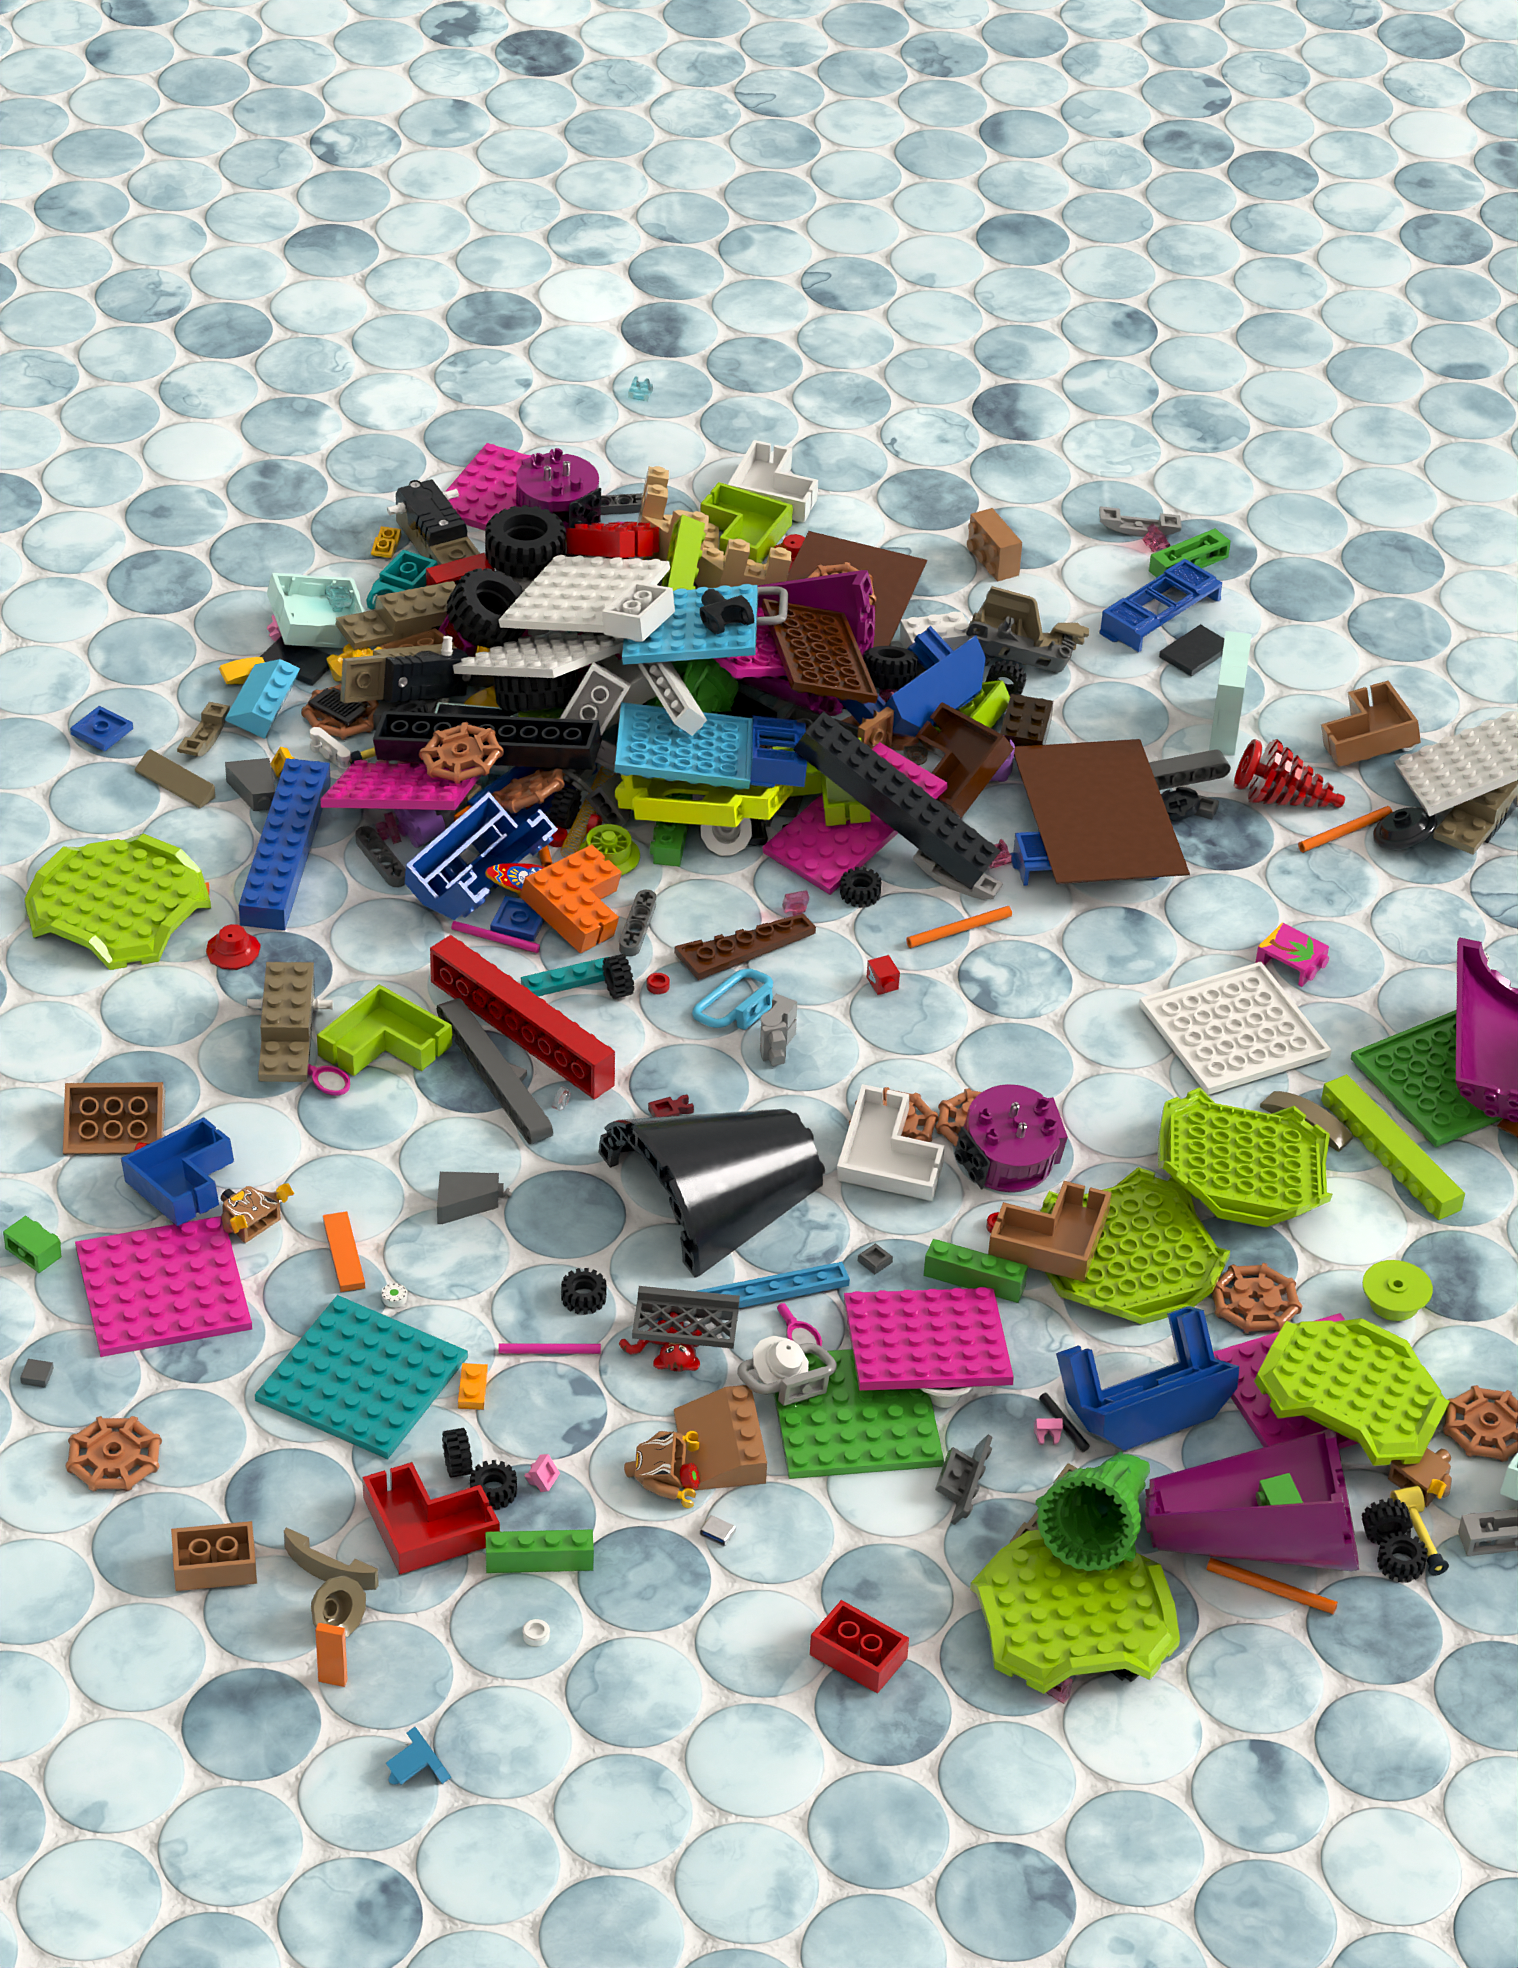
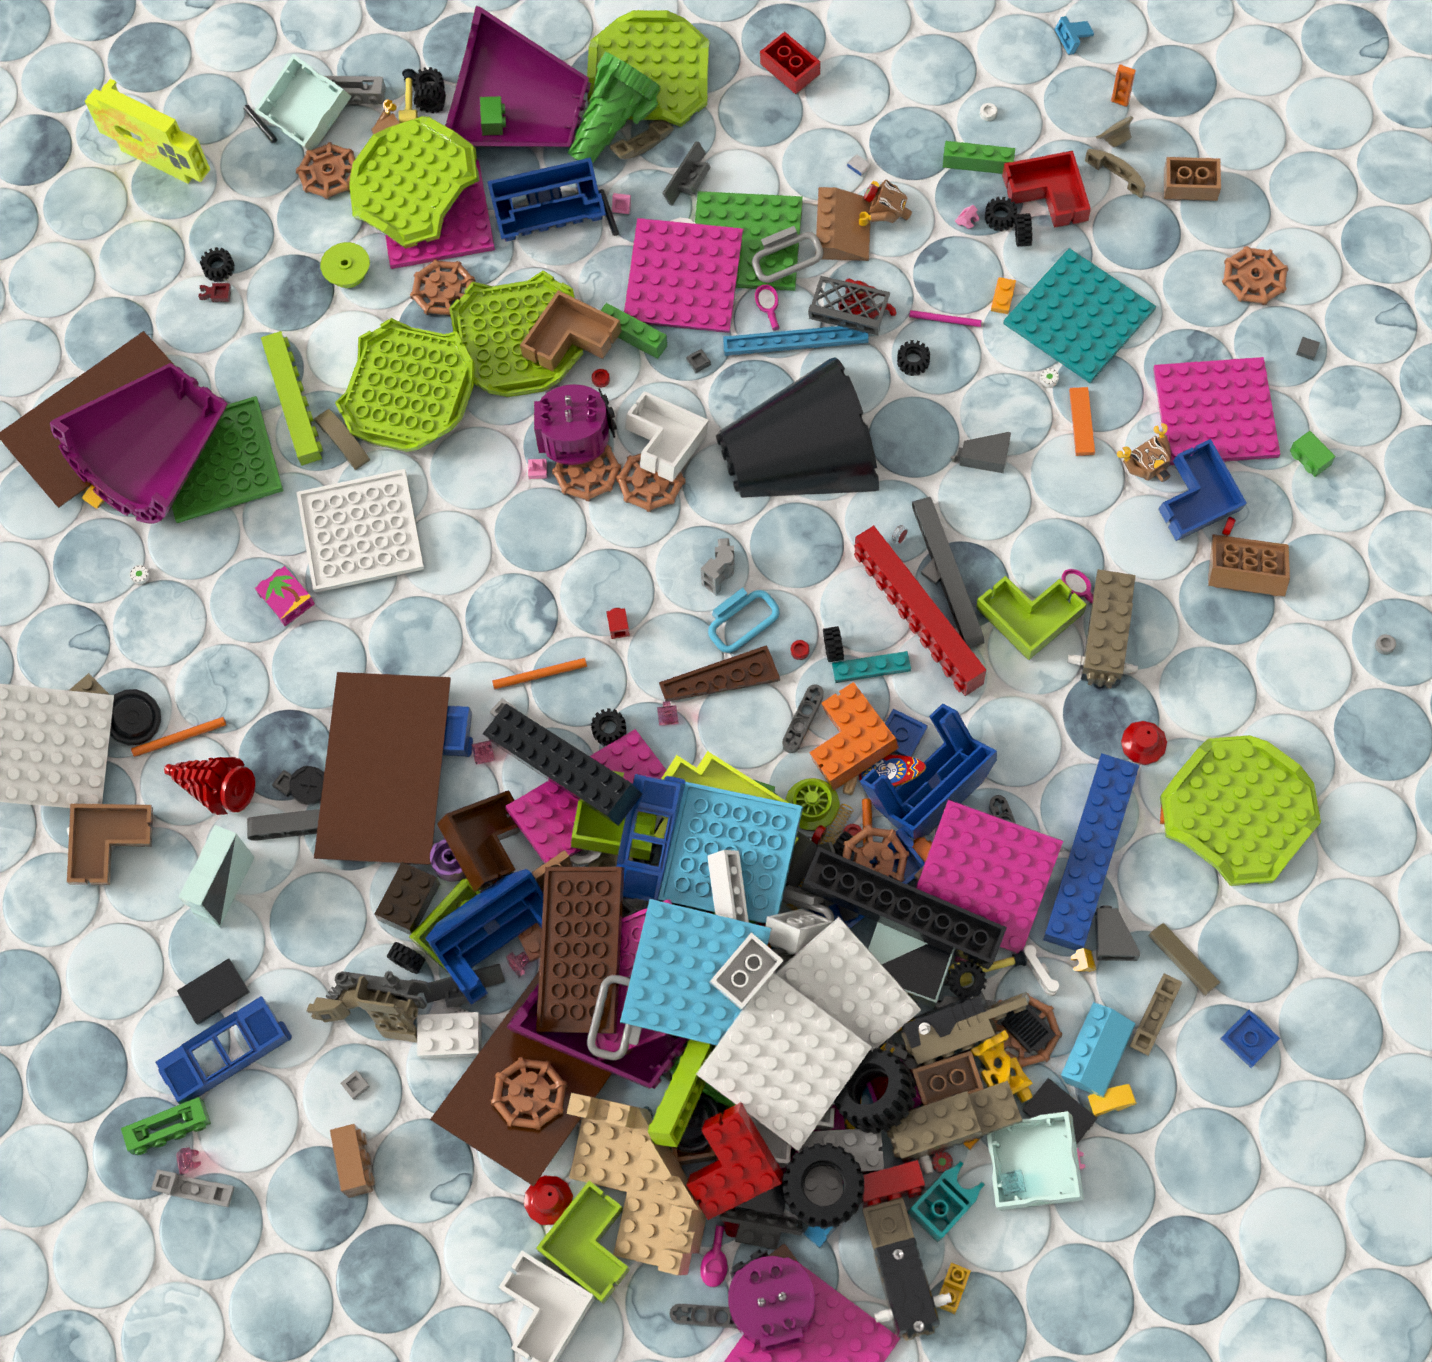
camera: 160 degrees left, 25 degrees up
(473, 752) = (925, 881): nougat plate -> none
(494, 936) = (897, 706): dark pink bar -> none
(669, 1107) = (820, 513): dark red plate -> none
(721, 611) = (666, 956): black connector -> none
(778, 1359) = (790, 259): white hat -> none
(891, 666) = (493, 975): black tyre -> none

